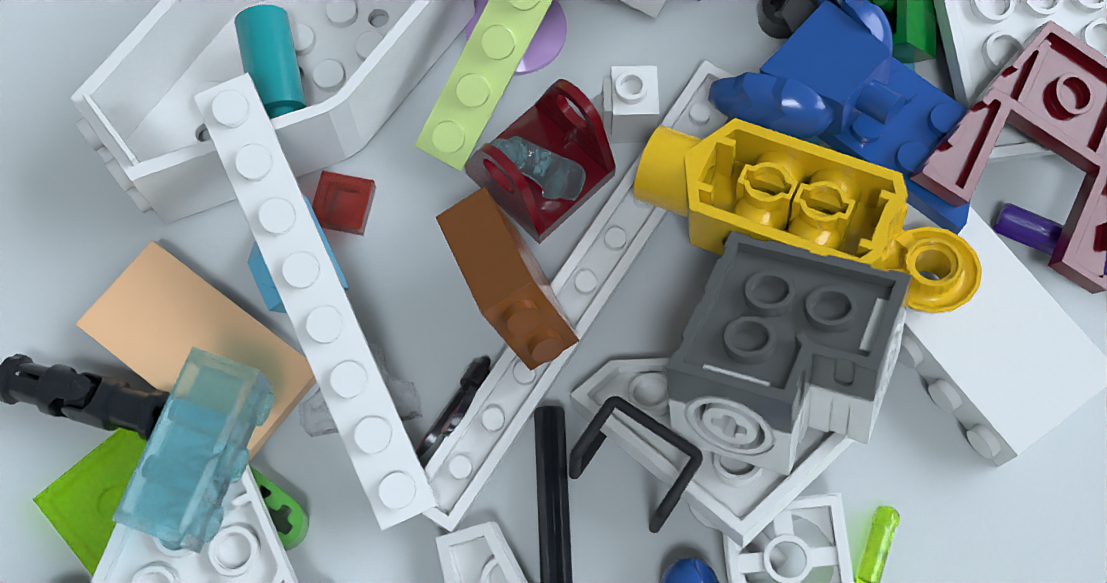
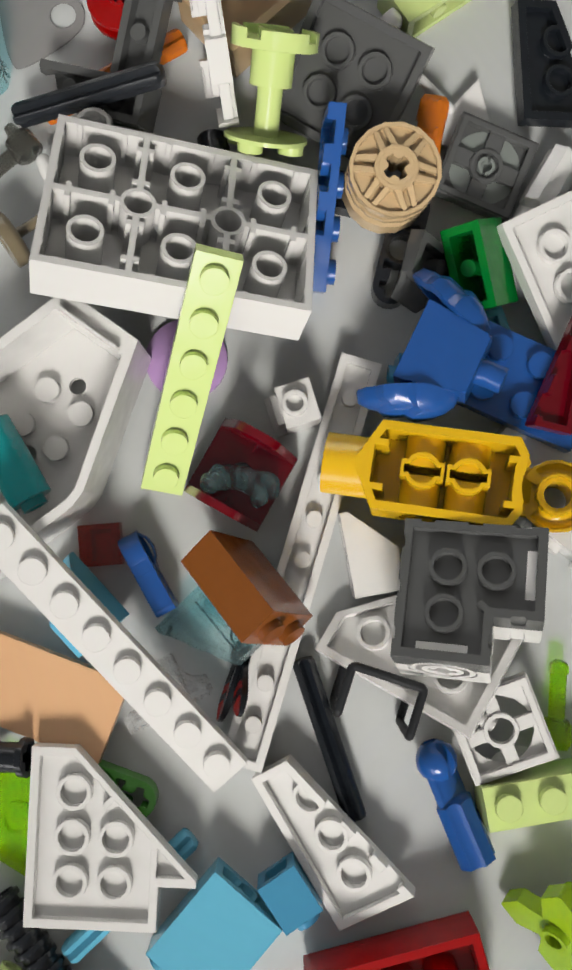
camera: 15 degrees left, 15 degrees up
(196, 451) = (66, 787): clear light blue brick -> none
(389, 246) = (147, 573): none -> blue piece
(448, 330) = (203, 628): none -> clear light blue wing
(668, 298) = (369, 558): none -> white slope

